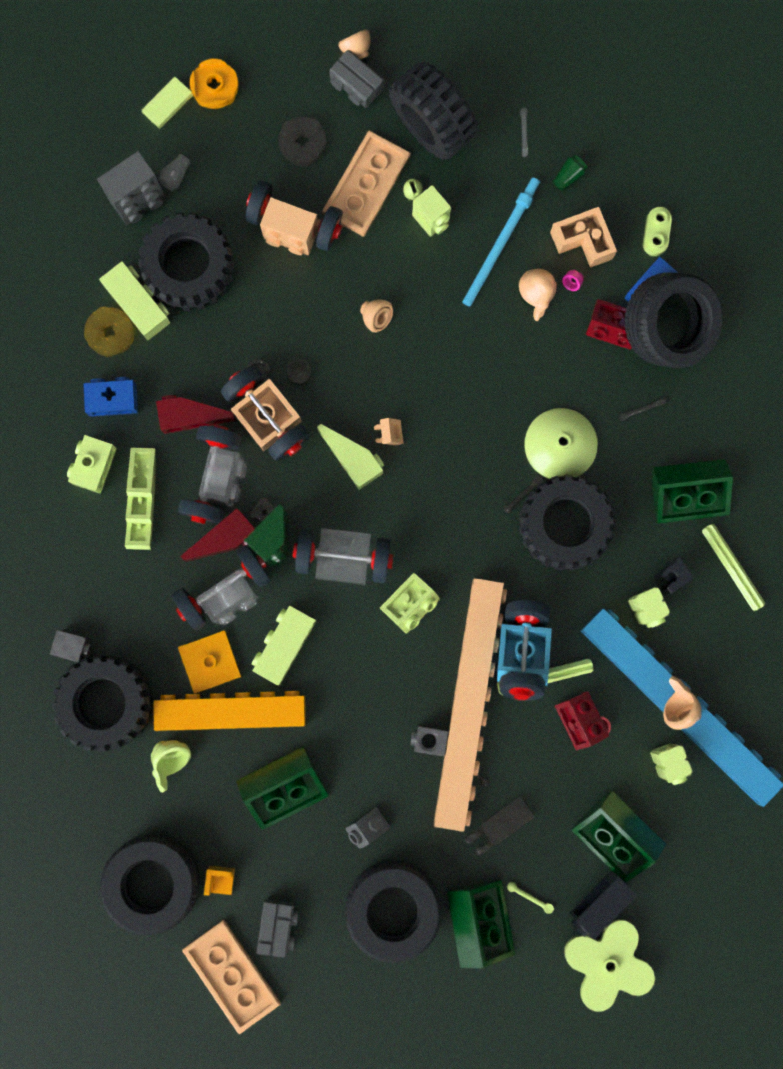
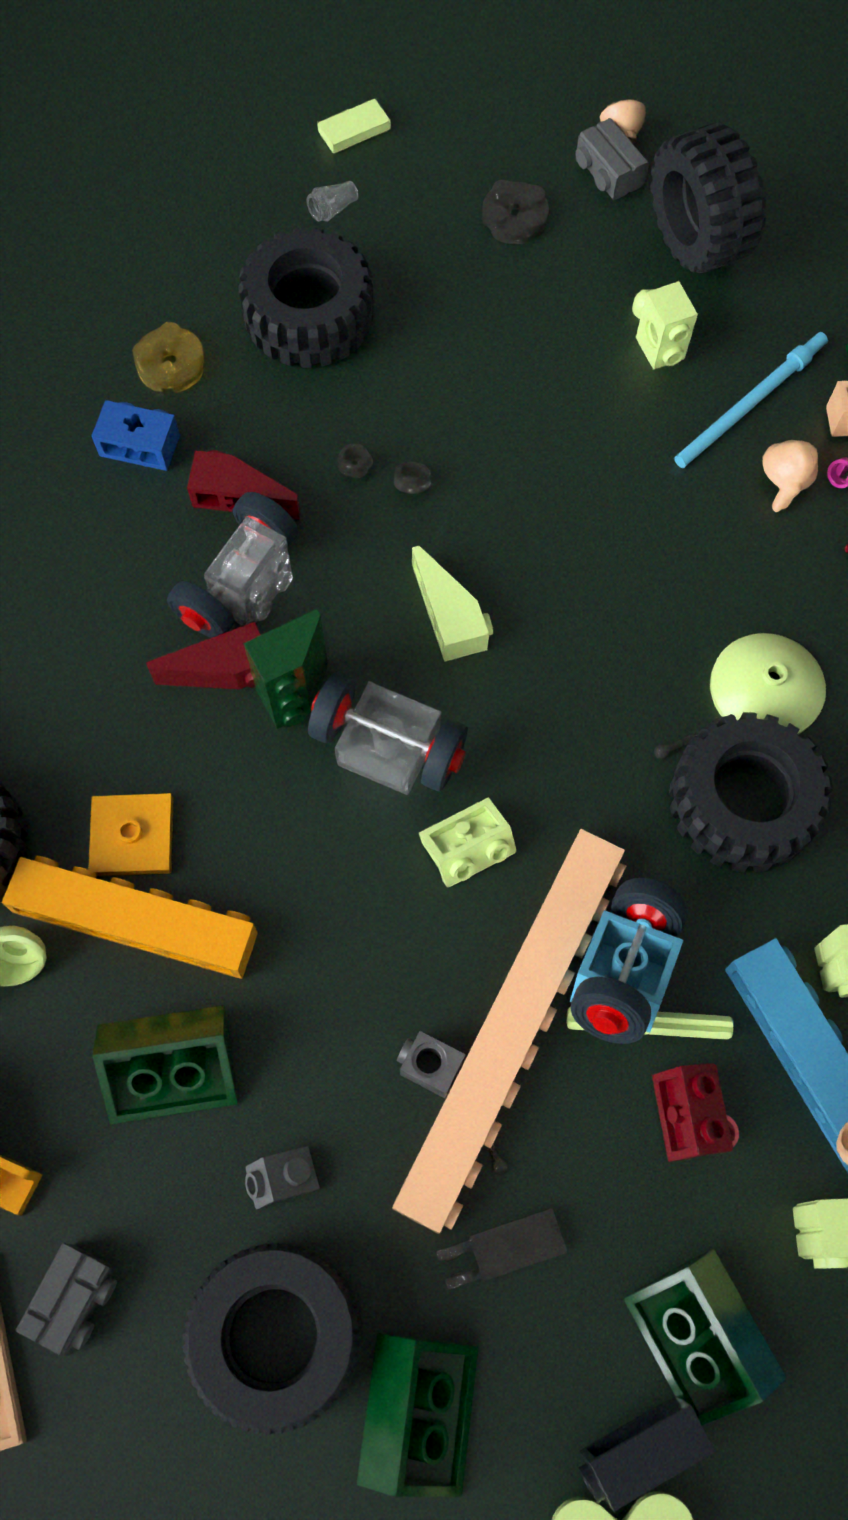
camera: 20 degrees right, 15 degrees down
(91, 464) = (74, 510): yellowish green brick -> none
(132, 188) = (267, 184): dark grey brick -> none
(135, 300) = (220, 328): yellowish green brick -> none
(140, 498) = (123, 578): yellowish green slope -> none
(223, 94) = (422, 134): light orange plate -> none
(225, 597) = (189, 738): brick -> none
(265, 413) = (342, 506): brick -> none
(283, 645) = (251, 841): yellowish green brick -> none
(291, 225) = (467, 289): brick -> none
(367, 182) = (584, 282): light nougat tile -> none
(377, 314) = (548, 436): light nougat brick -> none
(391, 431) = (517, 591): light nougat tile -> none
(523, 113) = (826, 258): clear hinge -> none
(548, 907) = (544, 1426): yellowish green hinge -> none

